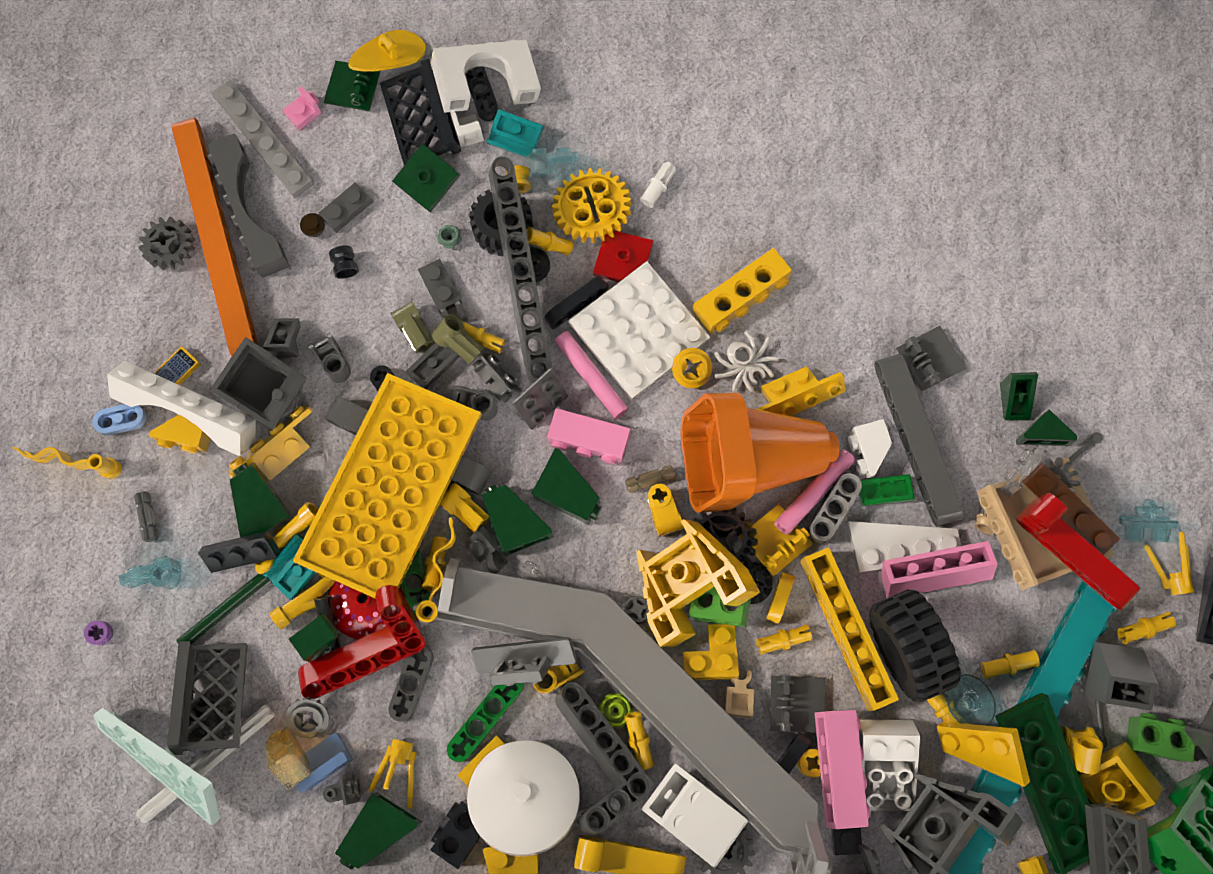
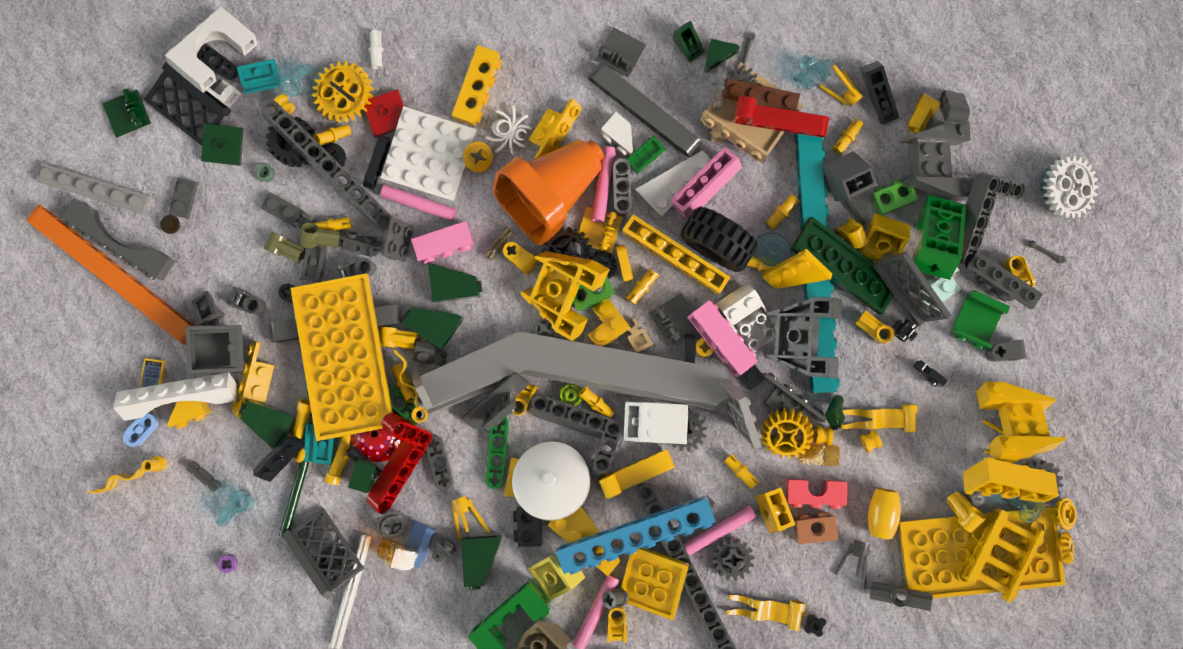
camera: 30 degrees left, 10 degrees up
(163, 765) = (333, 609): light aqua wing -> none
(164, 242) = (87, 299): dark grey gear -> none
(303, 109) = (105, 151): bright pink bracket -> none
(343, 262) = (209, 235): black wheel -> none
(388, 51) = (134, 74): yellow shield -> none

